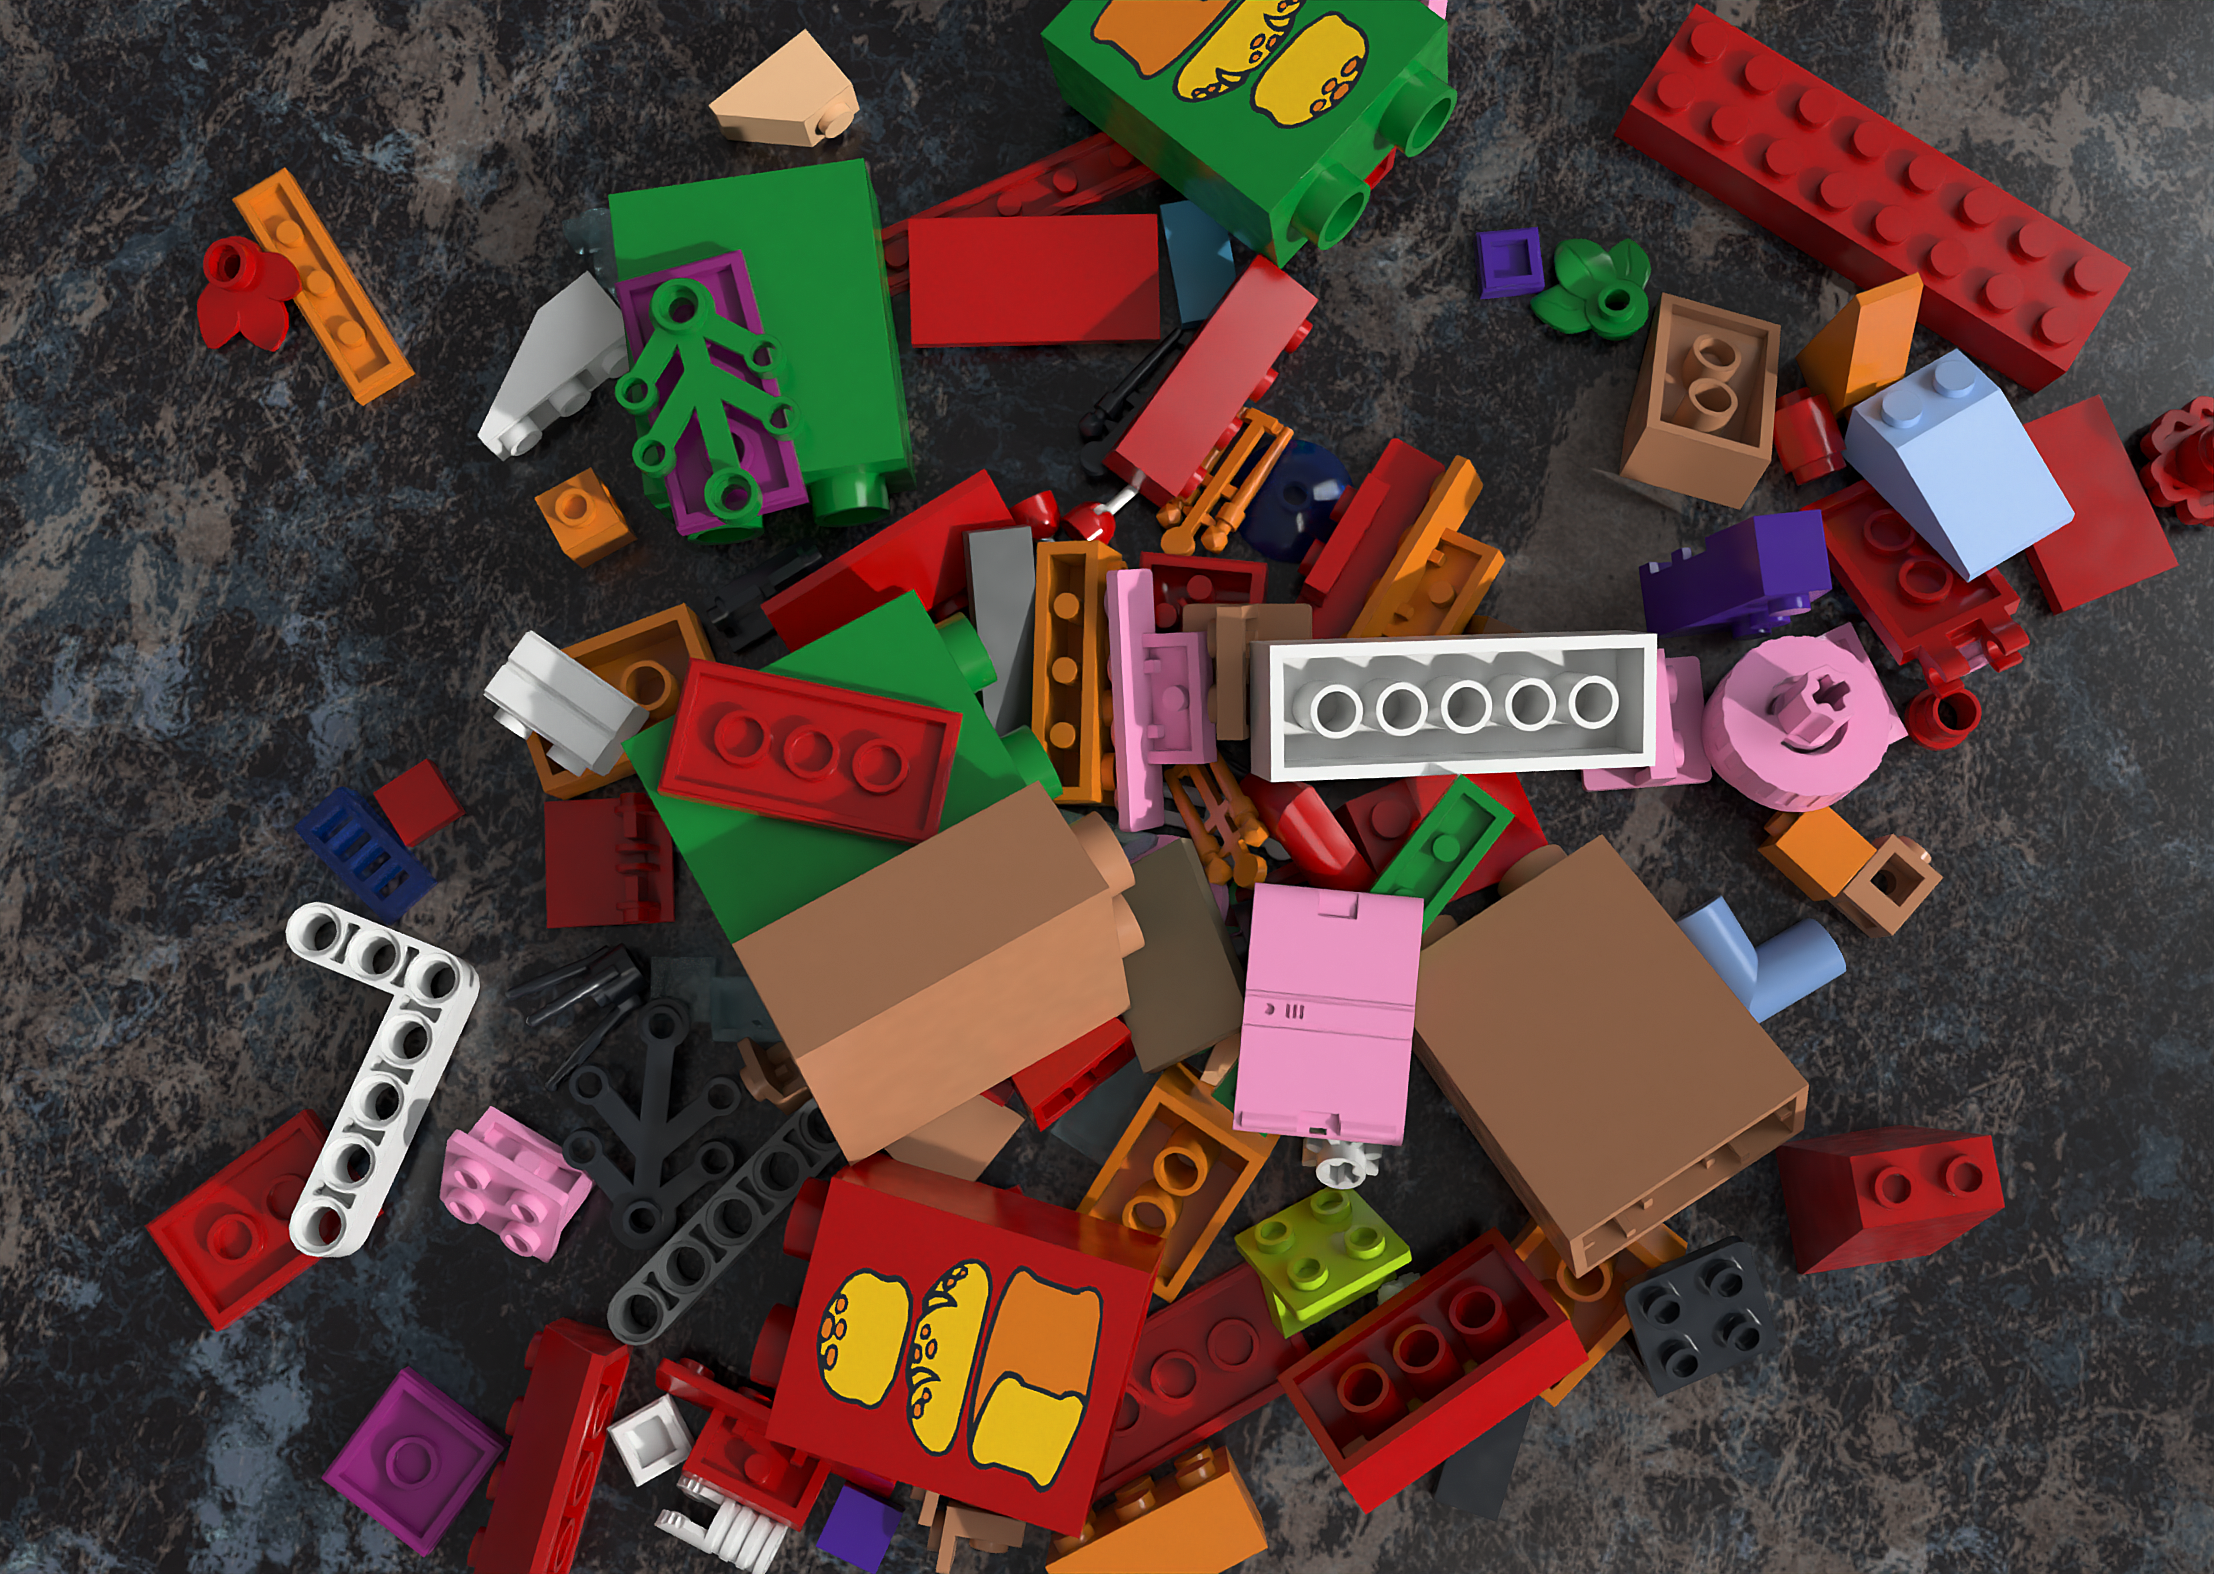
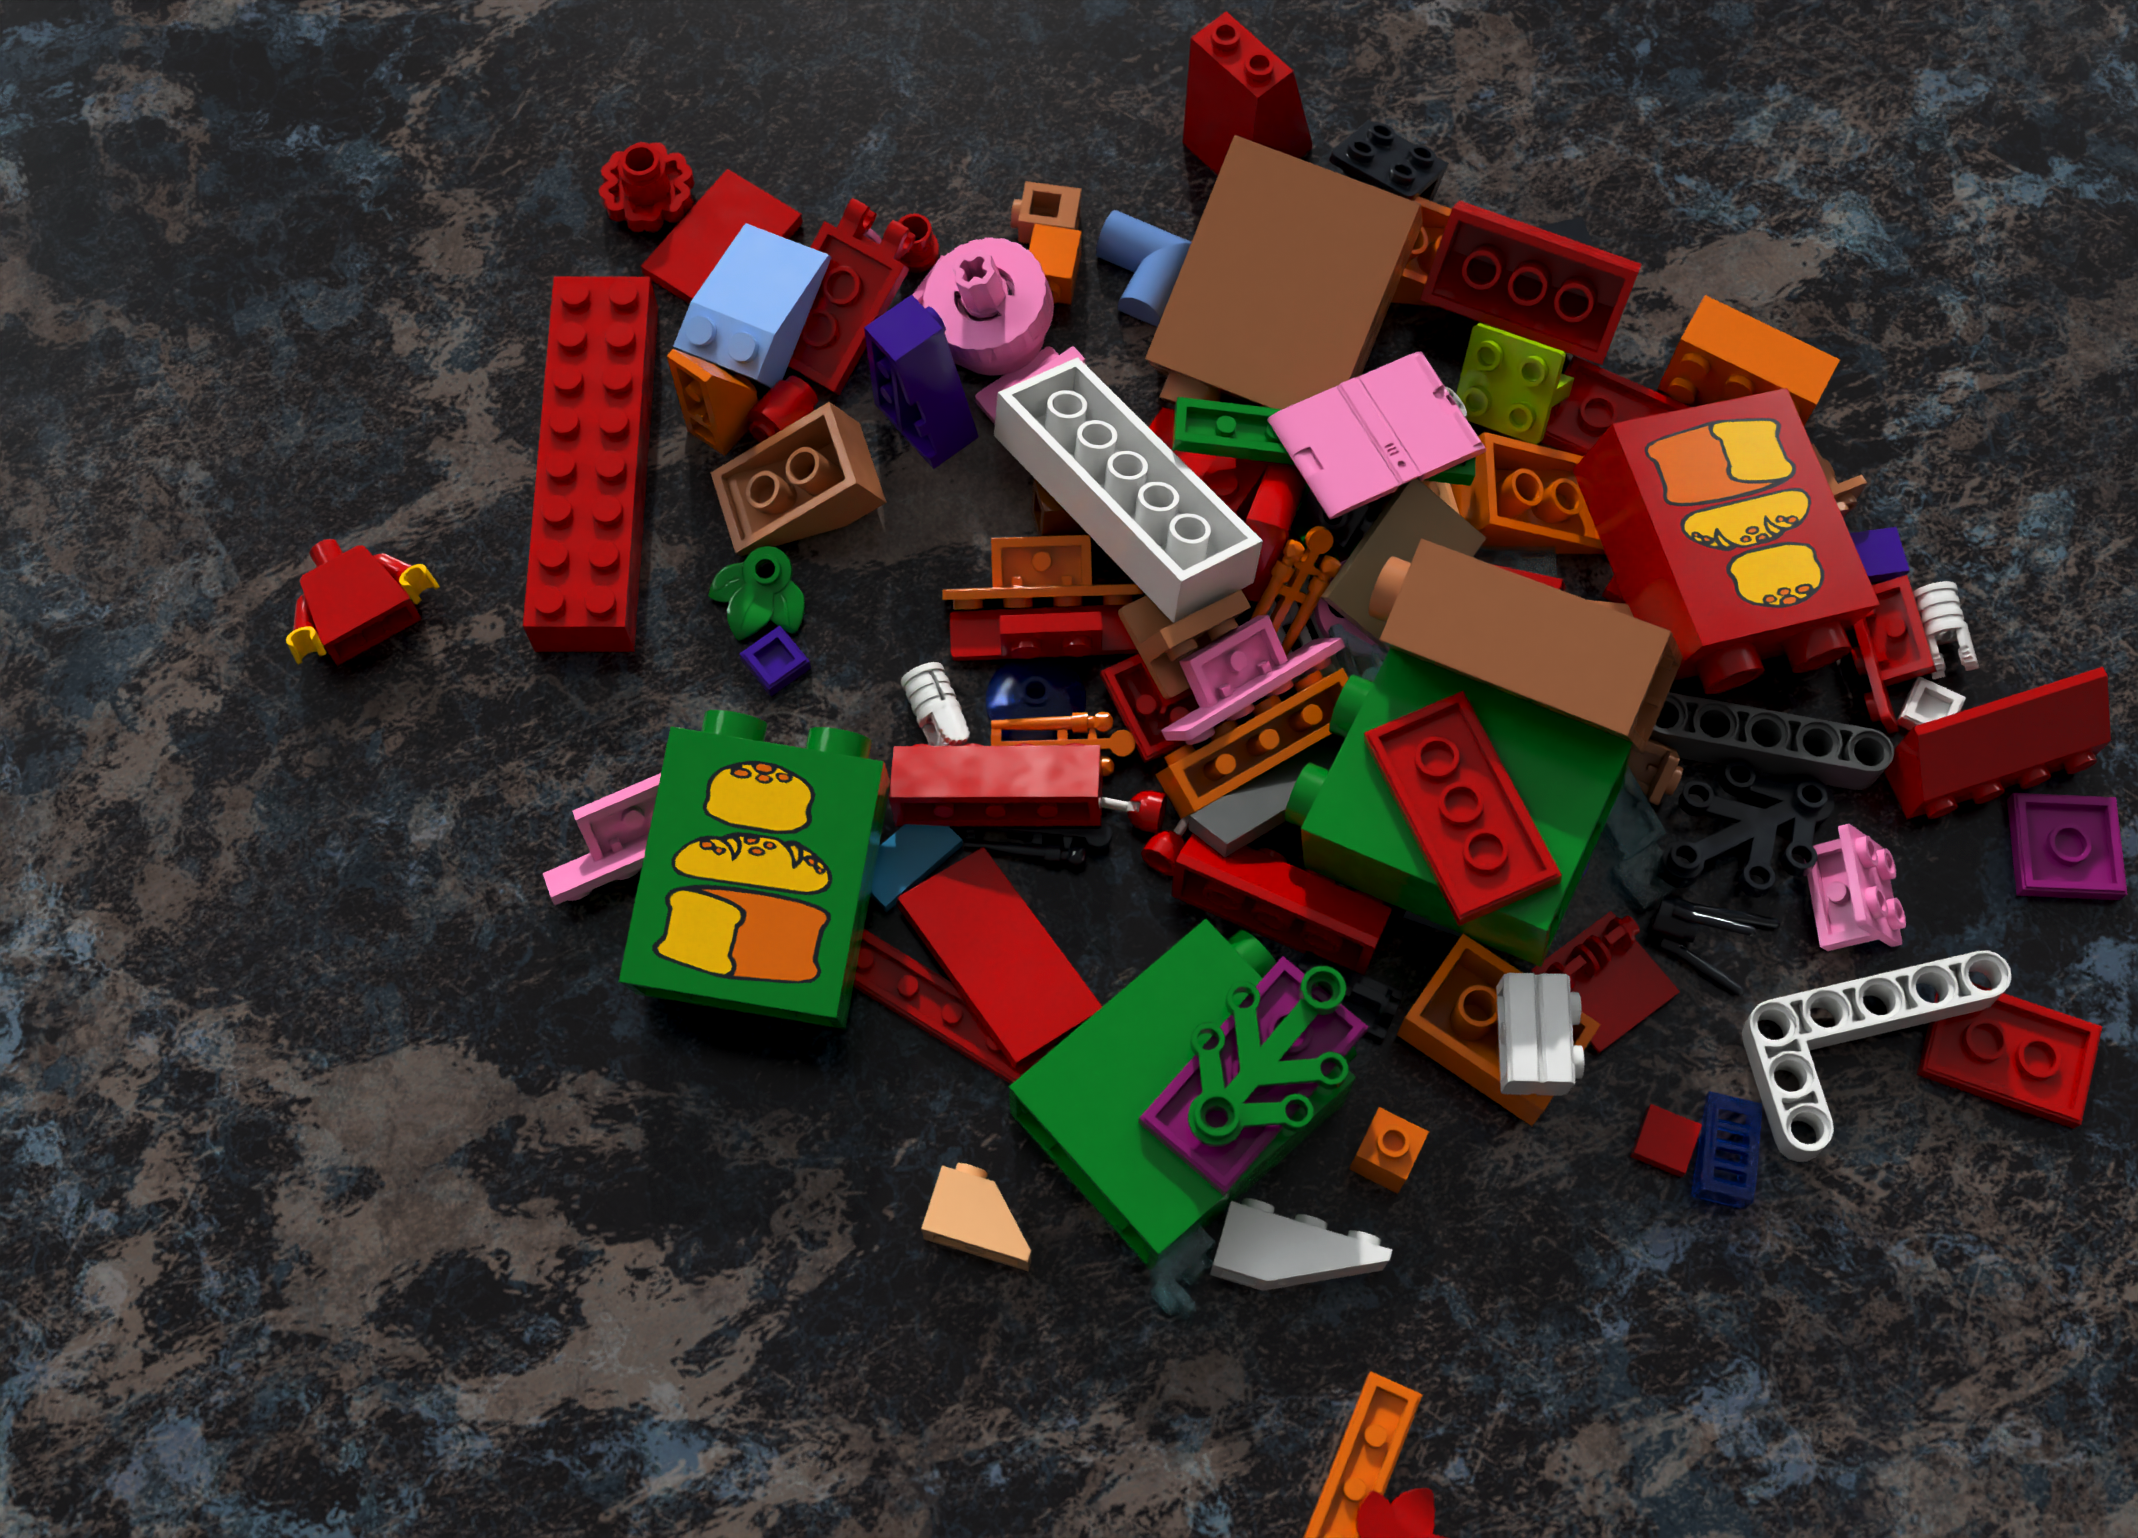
camera: 130 degrees left, 15 degrees down
(1321, 382) = (935, 705): none -> white hinge

